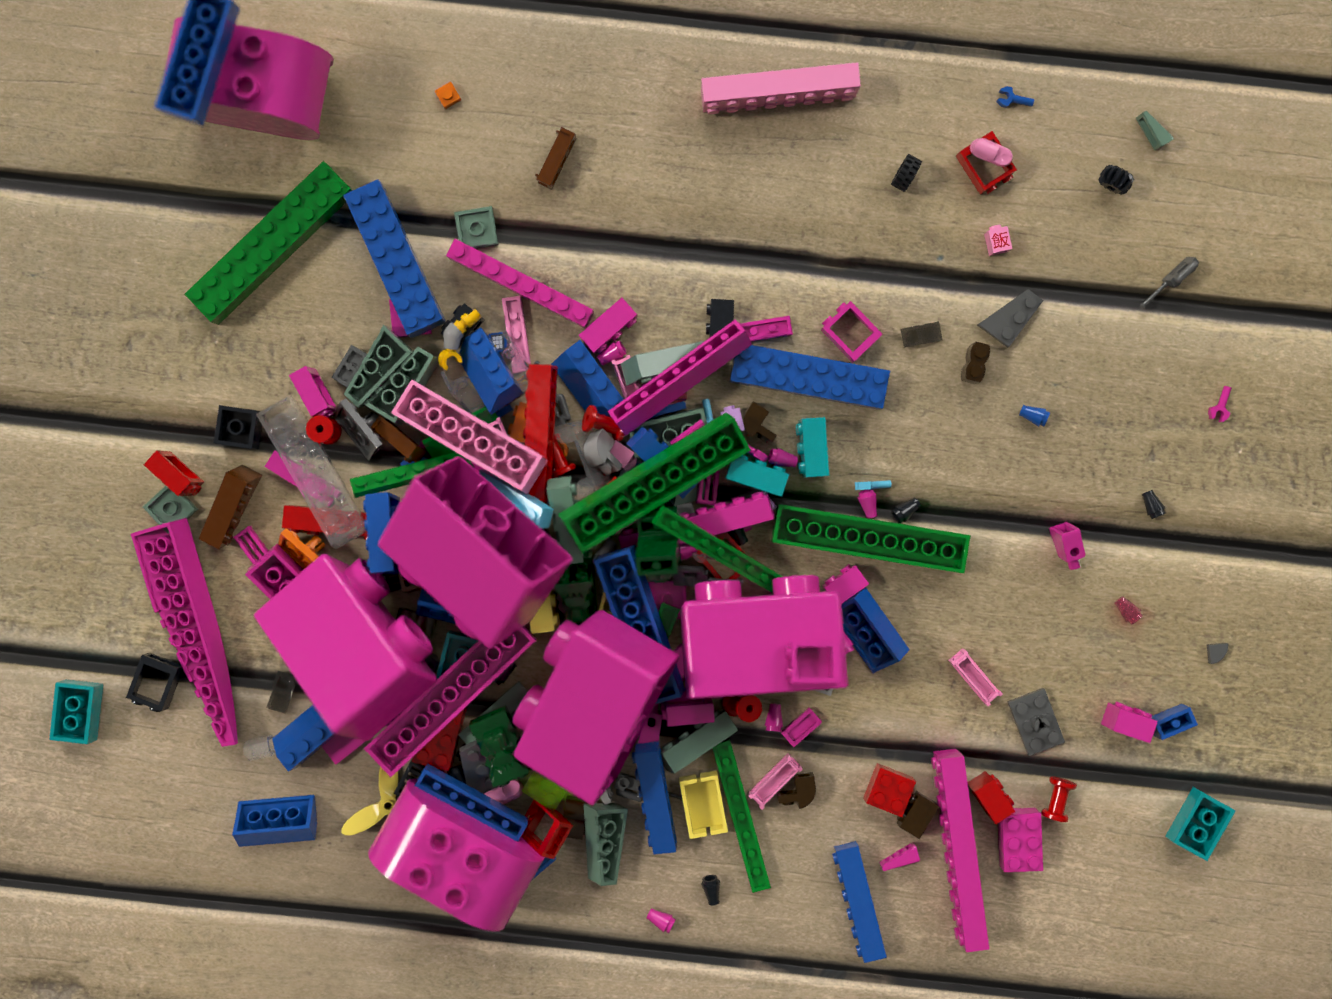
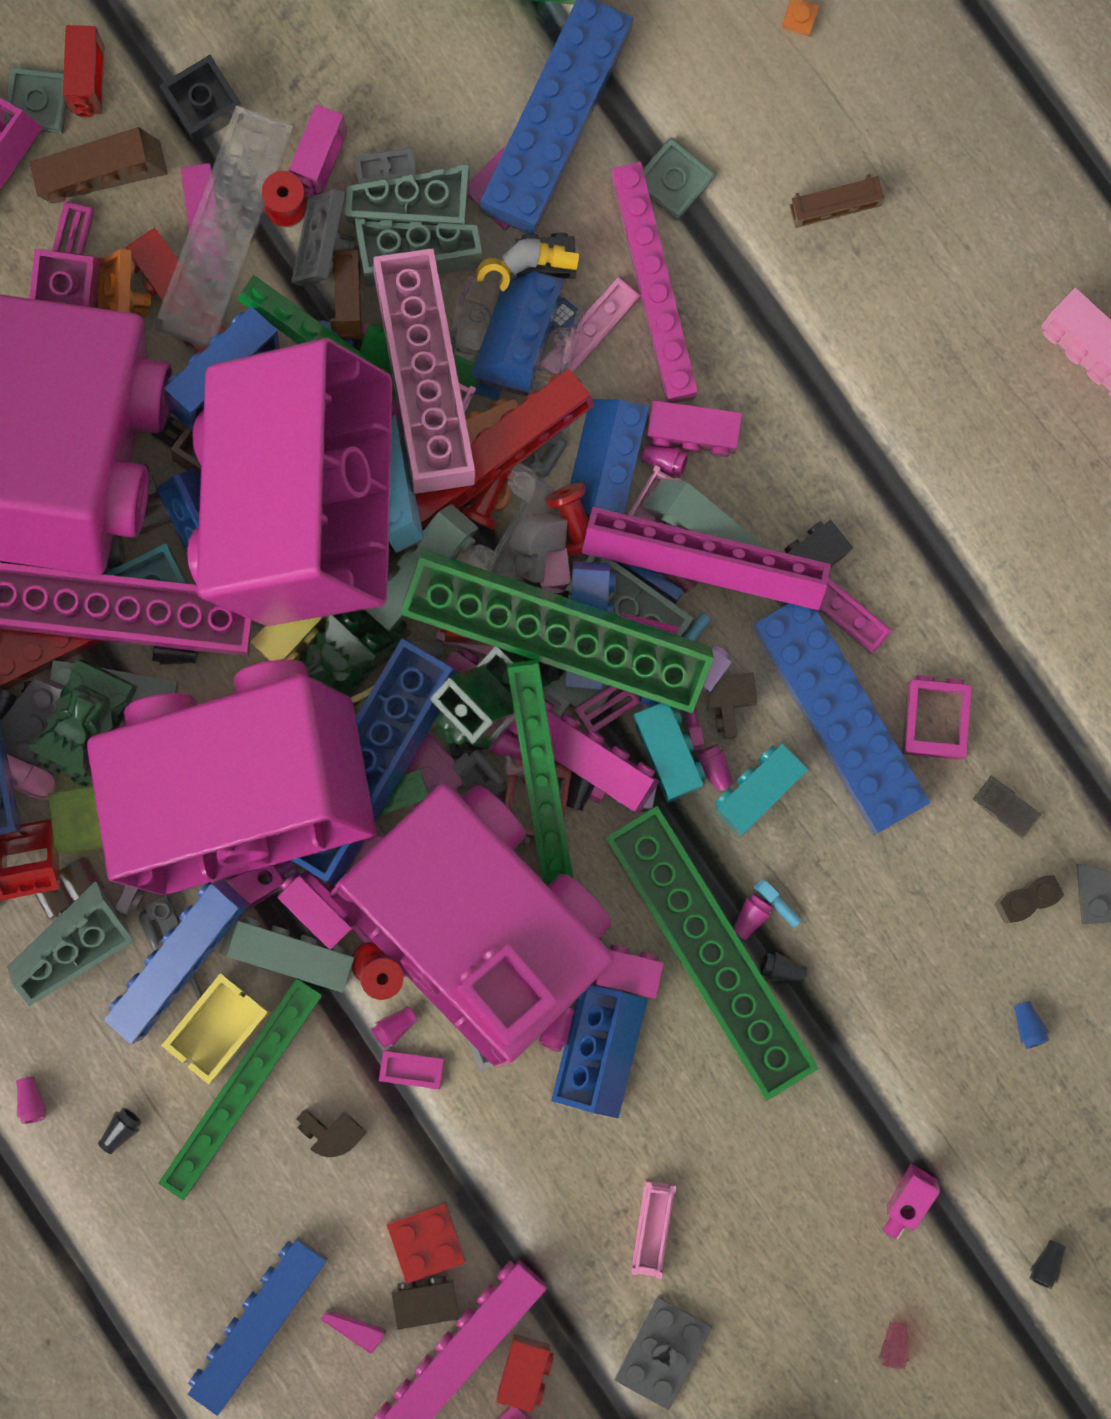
camera: 45 degrees right, 5 degrees down
(774, 780) = (318, 1093): bright pink container -> none

